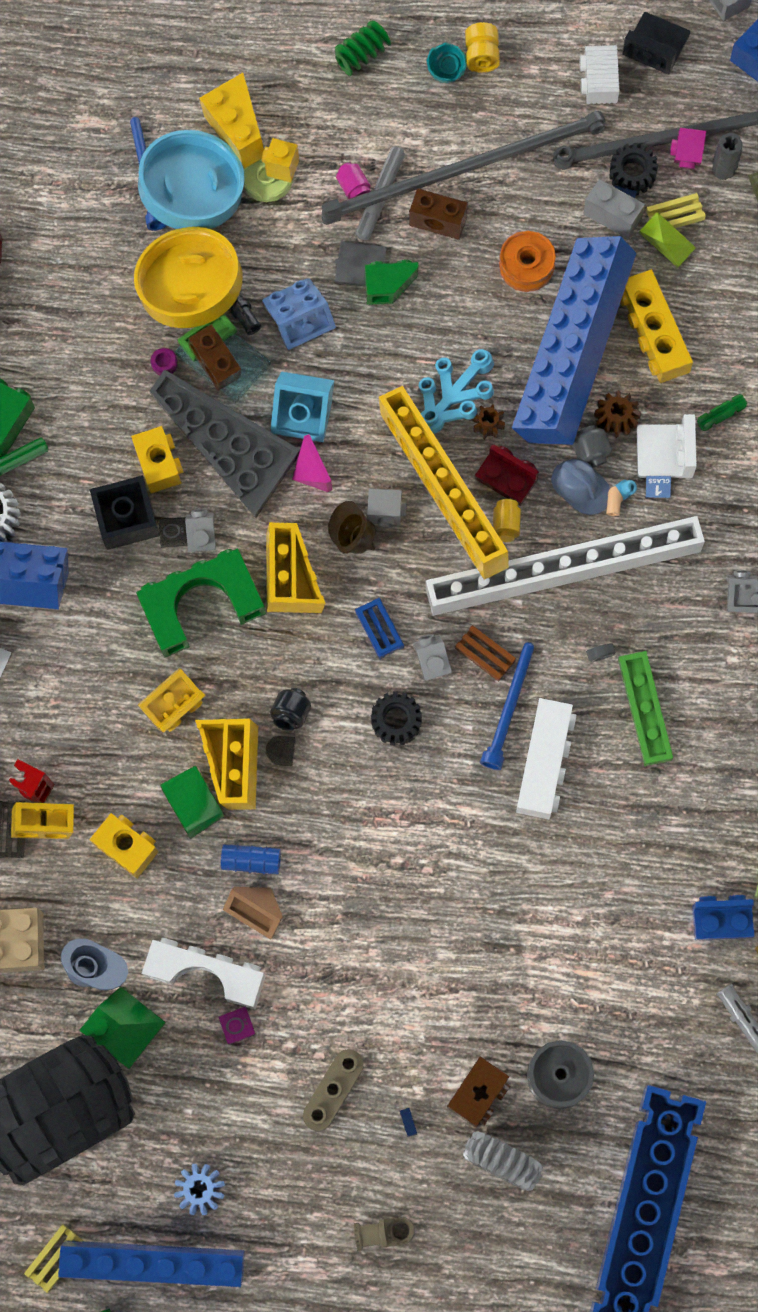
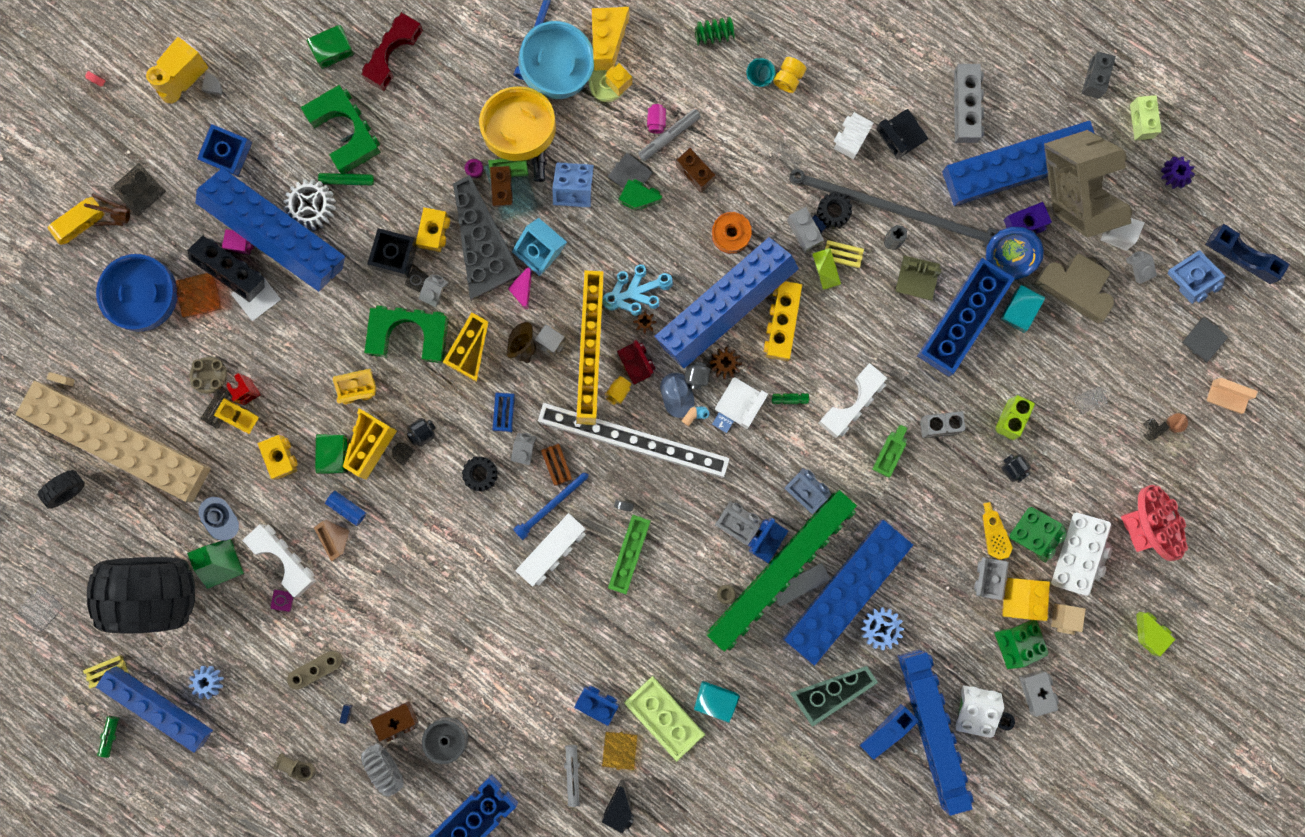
camera: 25 degrees right, 10 degrees up
(334, 209) = (828, 165): dark grey hinge -> none
(688, 148) = (876, 217): dark pink brick -> none

